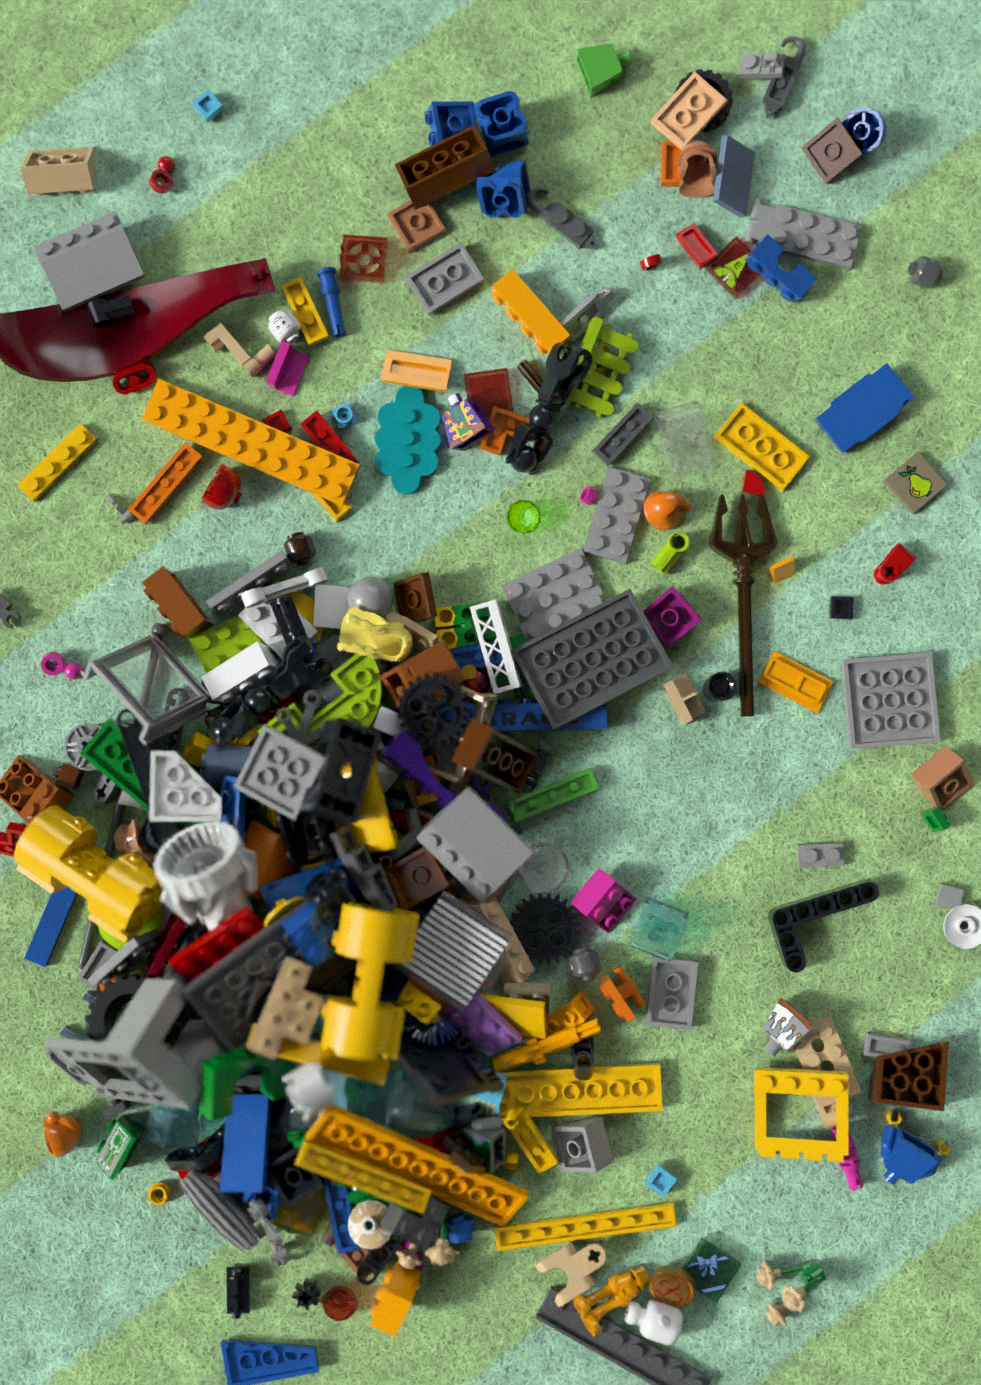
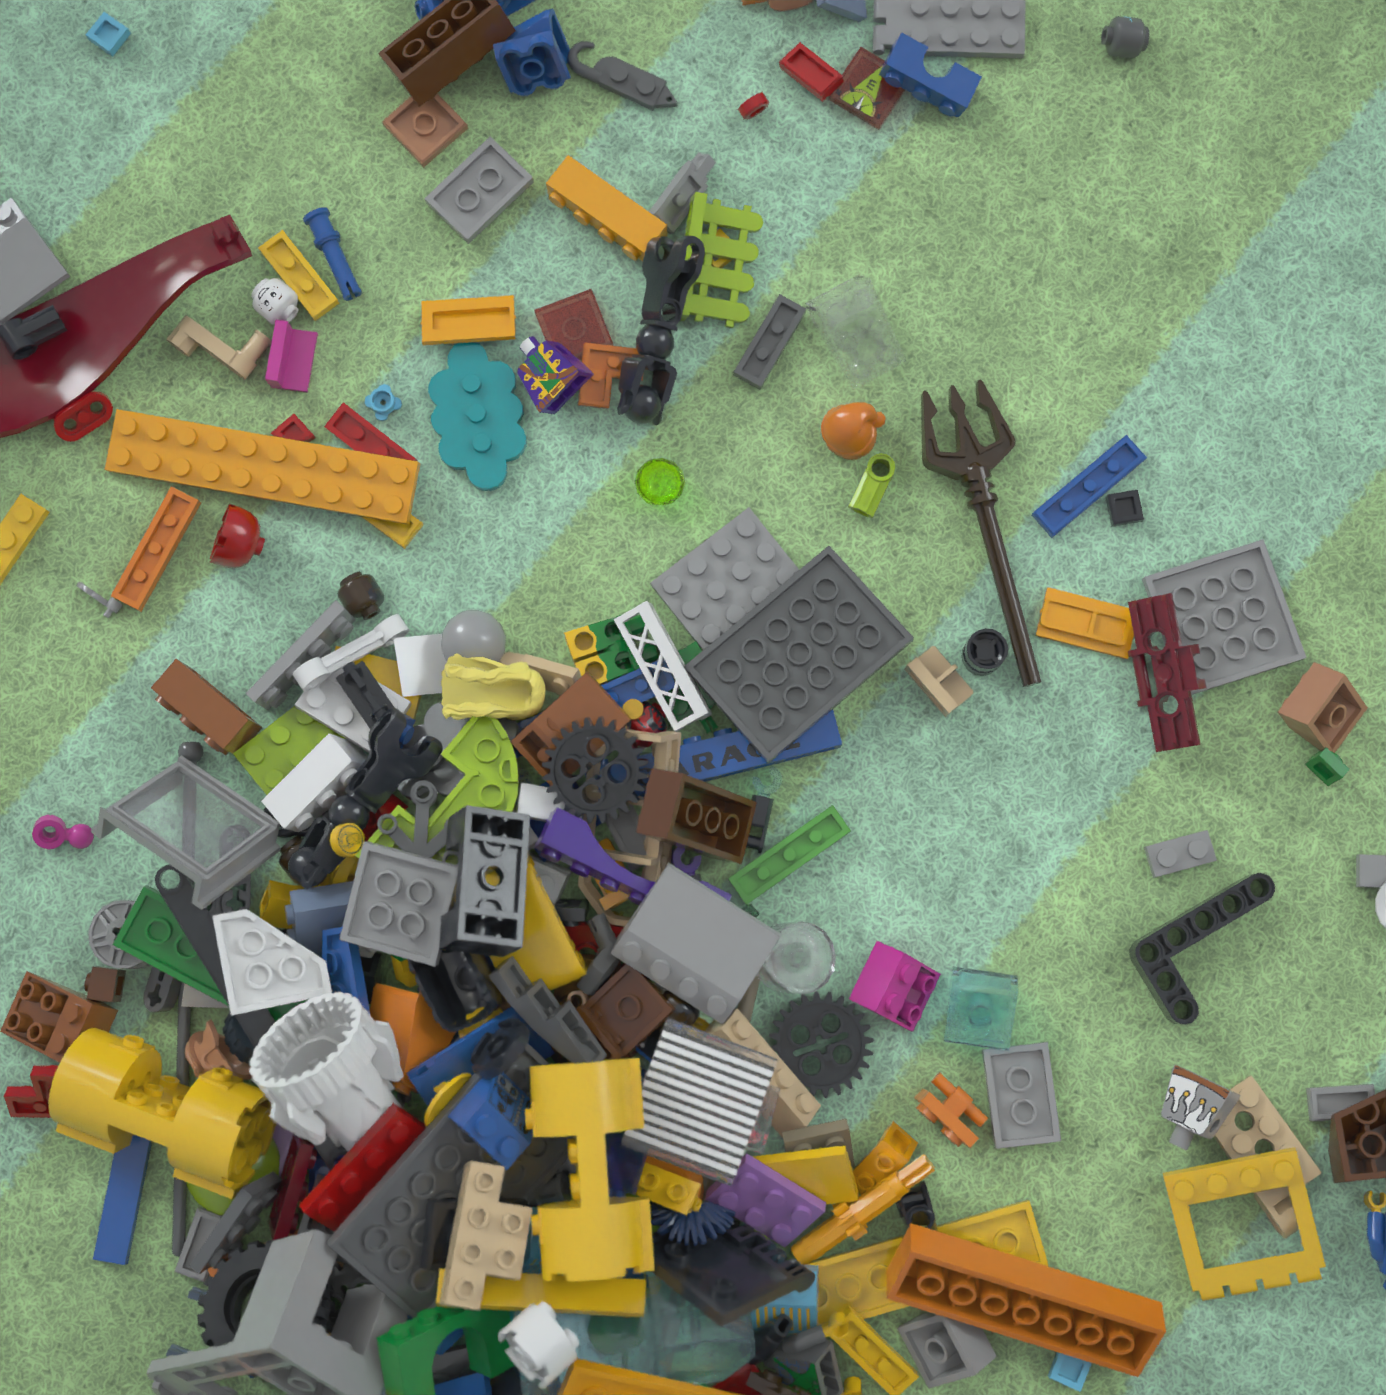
camera: 10 degrees left, 5 degrees down
(162, 175) = (64, 143): red plate -> none
(253, 719) = (347, 839): none -> yellow tile
(376, 276) = (385, 207): clear red piece -> none
(415, 597) = (536, 625): reddish brown plate -> none
(530, 375) = (625, 291): dark brown axle -> none
(585, 964) = (889, 1082): dark grey head -> none
(588, 495) = (742, 434): dark pink hinge -> none
(616, 515) = (787, 453): light grey plate -> none
(641, 1131) = (1025, 1300): none -> orange brick
(671, 616) = (895, 571): magenta slope -> none
(752, 484) = (962, 369): red tile -> none
(762, 447) = (963, 316): yellow tile -> none
(782, 570) = (1031, 474): light orange slope -> none
(820, 587) = (1089, 486): none -> blue tile
(846, 730) = (1172, 670): none -> dark red piece
(850, 1164) = (1332, 1280): dark pink hinge -> none
(864, 408) = (1088, 233): blue piece -> none
(895, 562) = (1182, 430): red piece -> none
(915, 483) = (1182, 318): dark tan tile -> none

